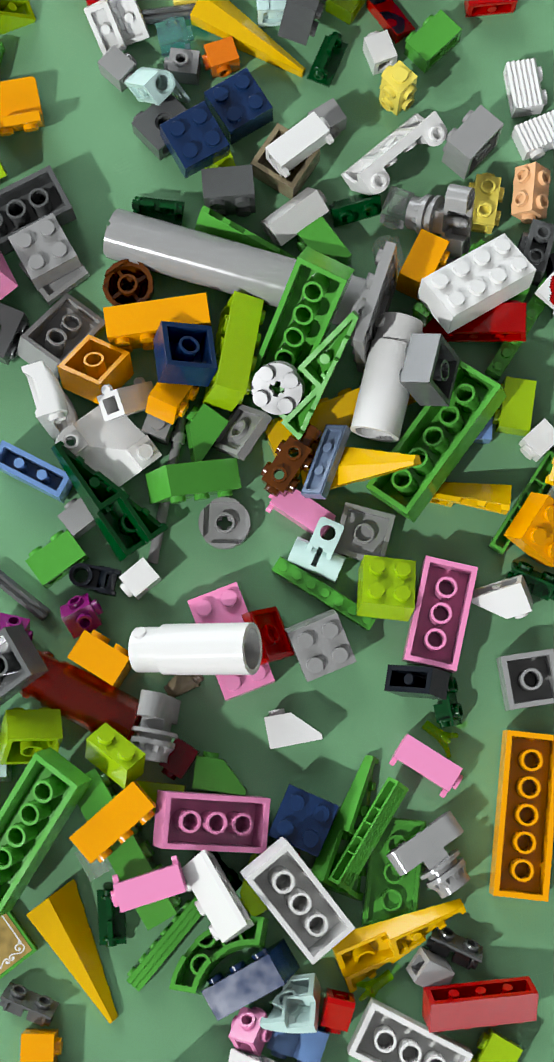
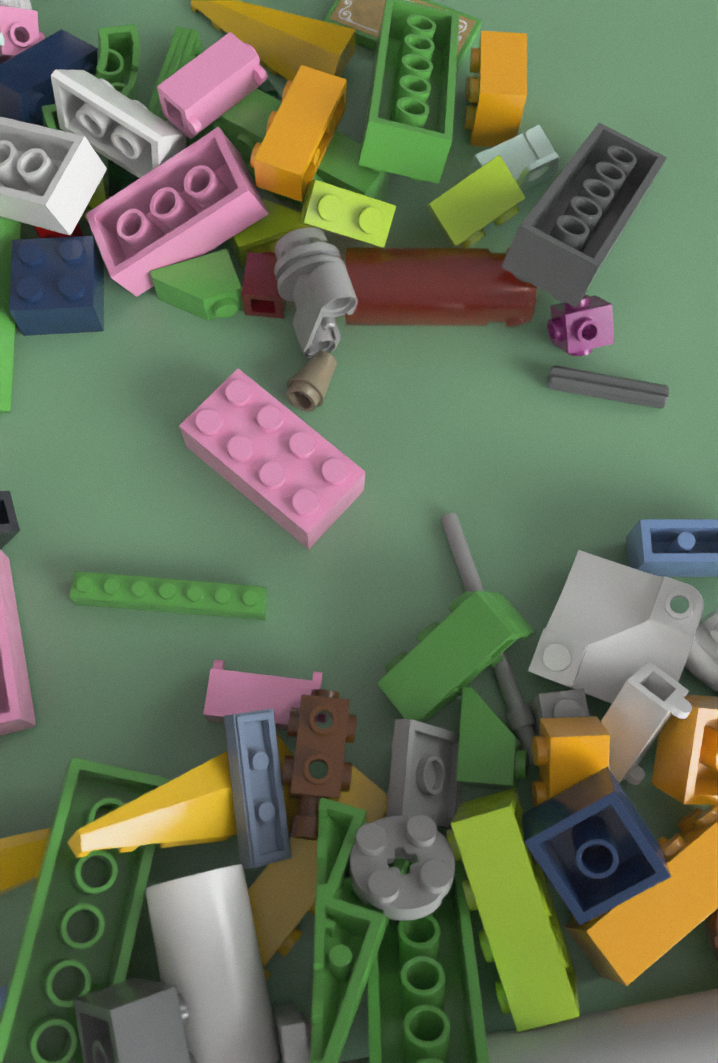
camera: 145 degrees right, 10 degrees down
(56, 558) = (584, 452): bright green brick -> none
(77, 518) = (591, 522): light grey brick -> none
(81, 614) = (503, 390): magenta brick -> none
(96, 578) = (507, 451): black piece -> none
(101, 659) = (441, 343): light orange brick -> none
(118, 517) = (534, 542): dark green wedge -> none
(139, 579) = (452, 480): white brick -> none
(196, 649) = (306, 394): white piece -> none
(235, 513) = (382, 599): light grey plate -> none
(273, 634) = (222, 485): red tile -> none
(287, 729) = (129, 385): white slope -> none
(318, 554) = (203, 639): light aqua piece -> none
(320, 645) = (137, 511): light grey brick -> none
(364, 532) = (149, 716): light grey plate -> none
(386, 588) = (69, 641): lime brick -> none

